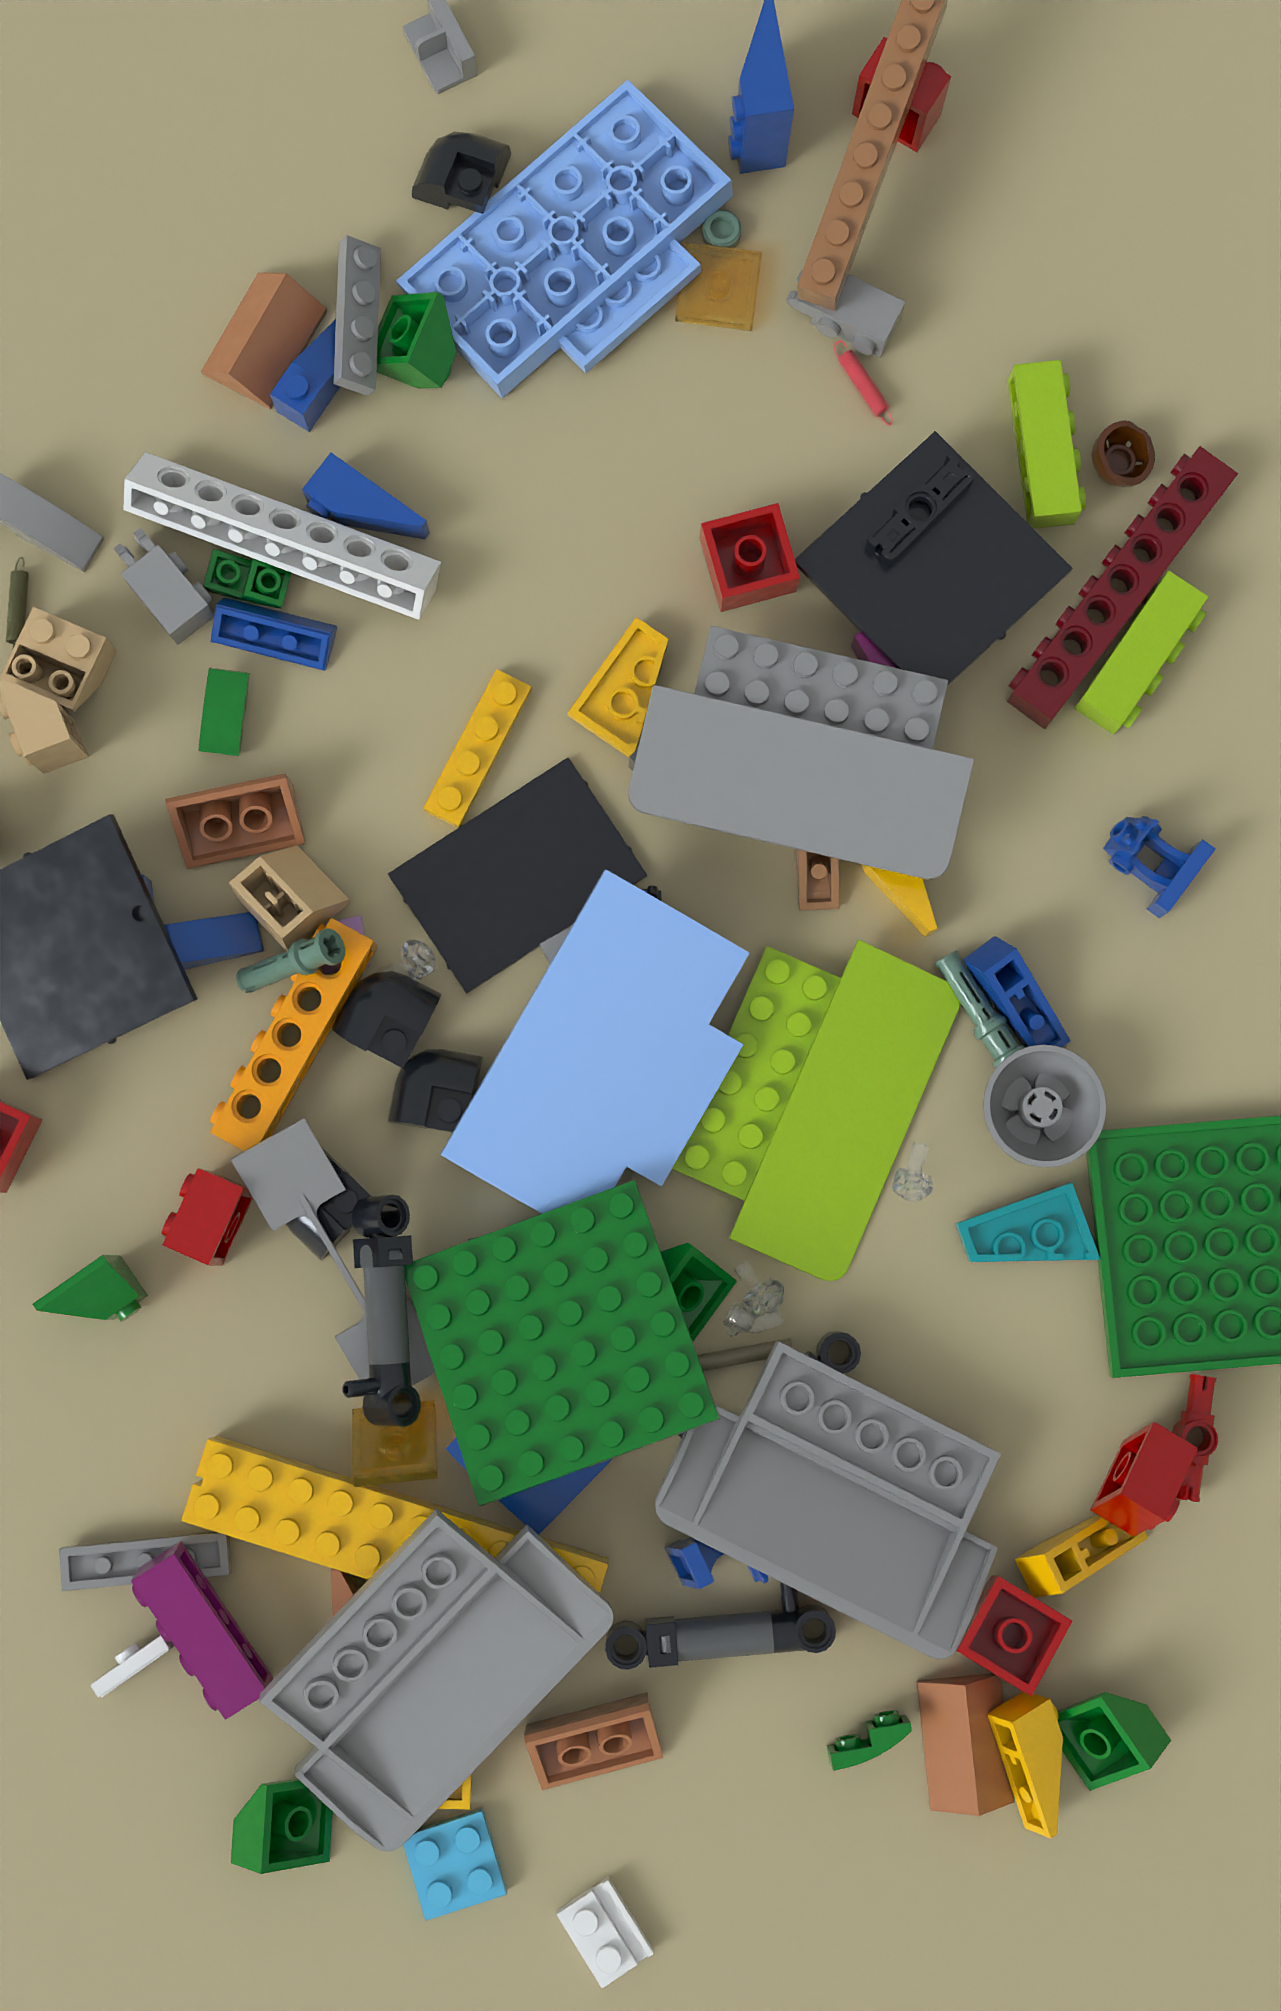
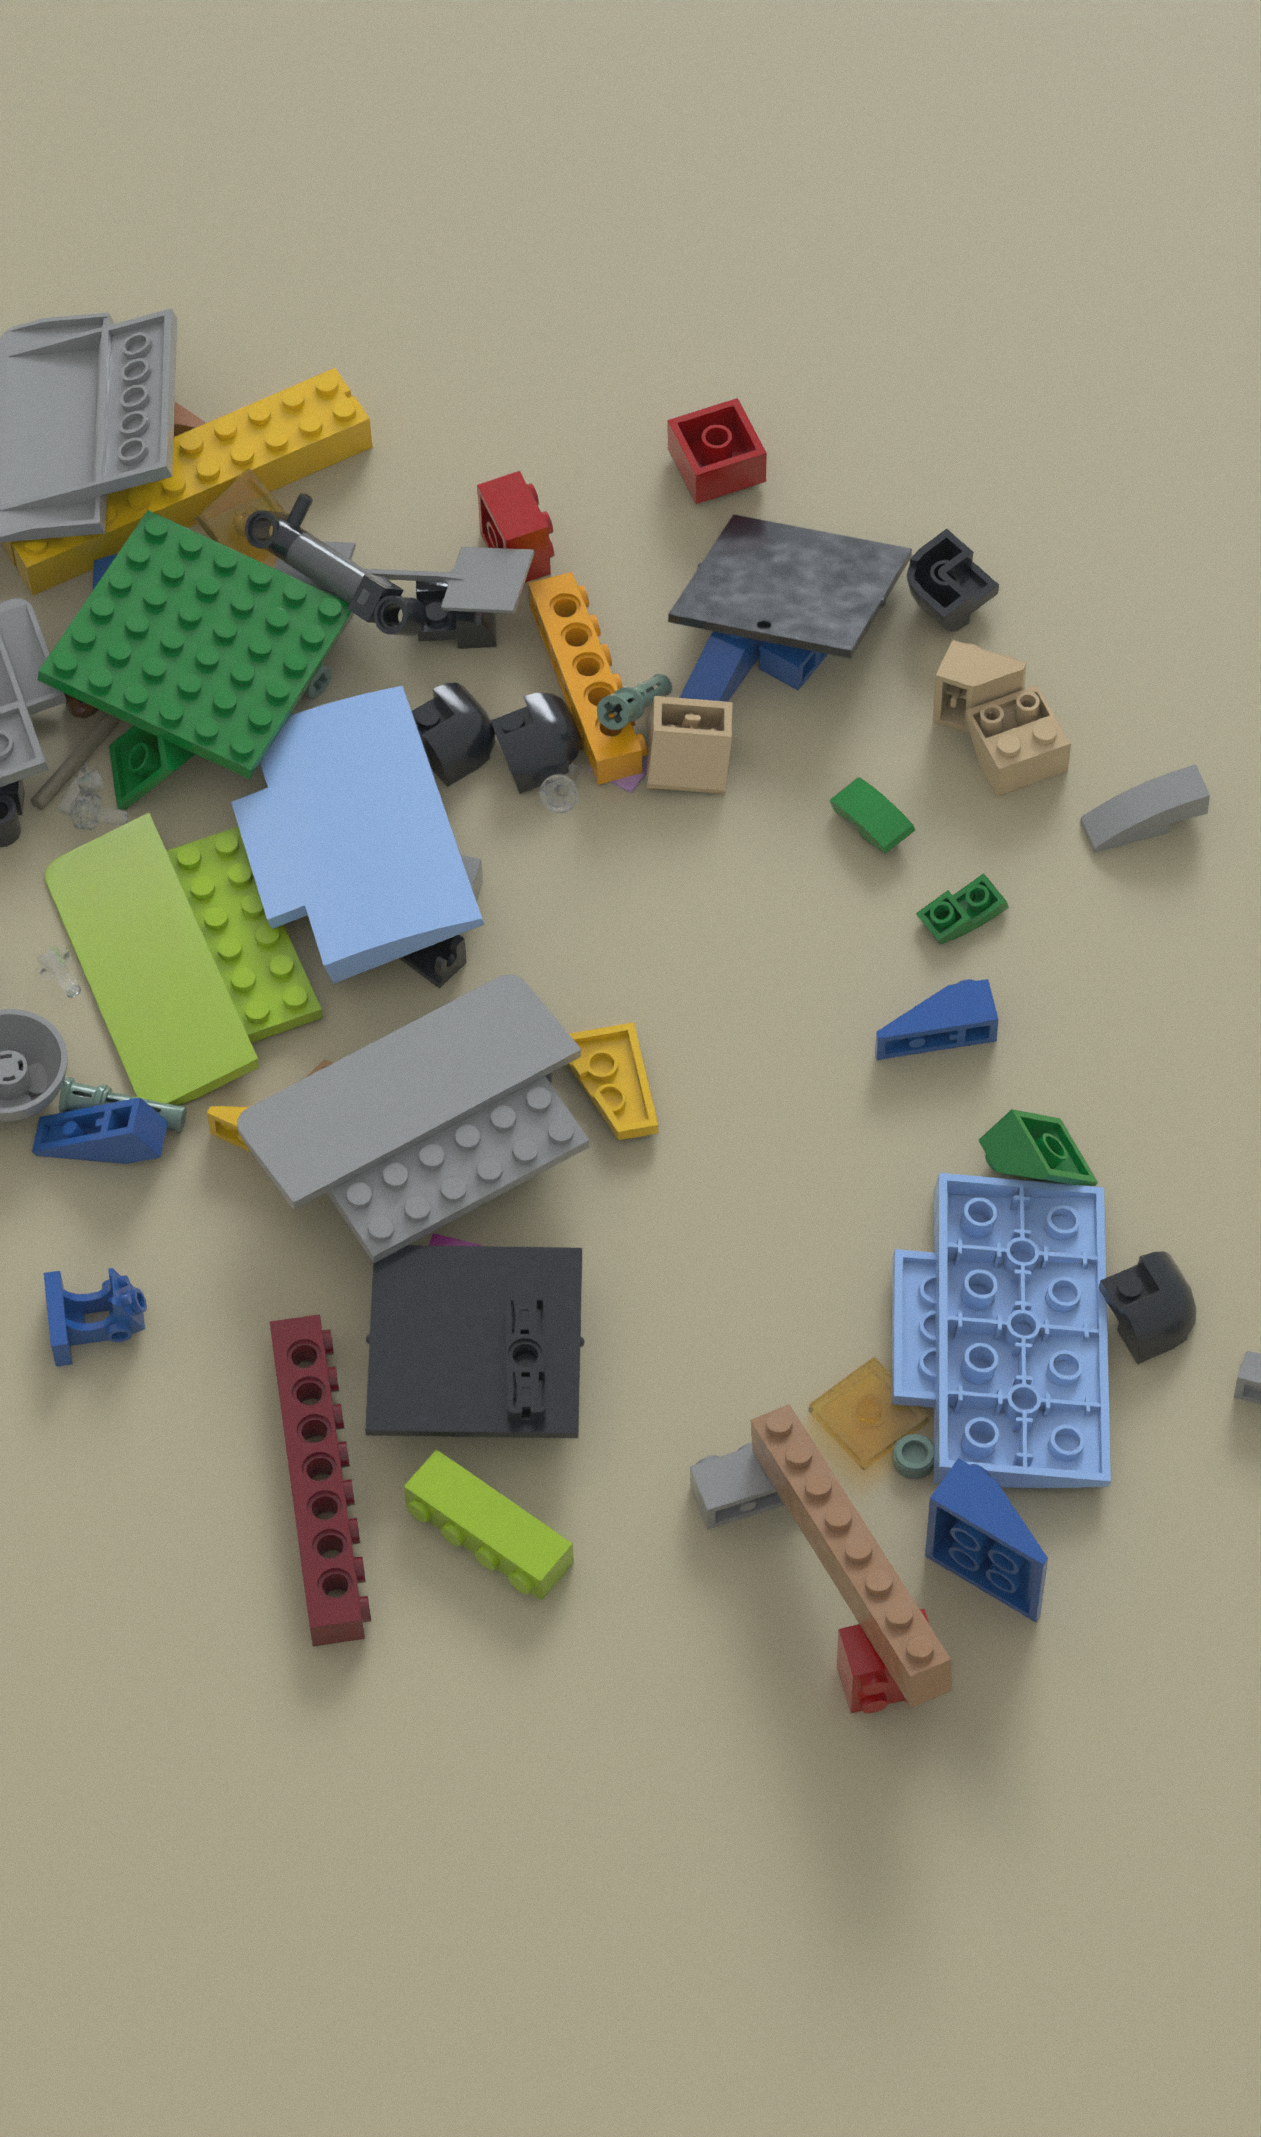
camera: 140 degrees right, 25 degrees down
(16, 603) = (1096, 758): olive piece -> none
(97, 1291) = (538, 436): green slope -> none
(118, 1561) = (341, 339): light grey plate -> none
(129, 1663) = (281, 293): white plate -> none
(165, 590) = (1011, 848): light grey hinge -> none
(201, 1630) = (255, 335): magenta brick -> none
(236, 820) = (783, 763): nougat slope -> none
(264, 336) = (1147, 1066): nougat slope -> none
(273, 633) = (901, 898): blue slope -> none
(281, 535) = (1093, 885): white brick -> none
(281, 1829) = (83, 285): green slope -> none
(308, 382) = (1079, 1078): blue slope -> none
(357, 315) = (1098, 1131): light grey plate -> none
(477, 748) = (673, 955): yellow plate -> none
(514, 874) = (554, 906): black piece -> none
(749, 557) = (621, 1230): red brick -> none
(863, 383) = (675, 1447): coral piece -> none
(1117, 462) = (418, 1575): reddish brown helmet -> none
(1142, 652) = (252, 1446): lime brick -> none

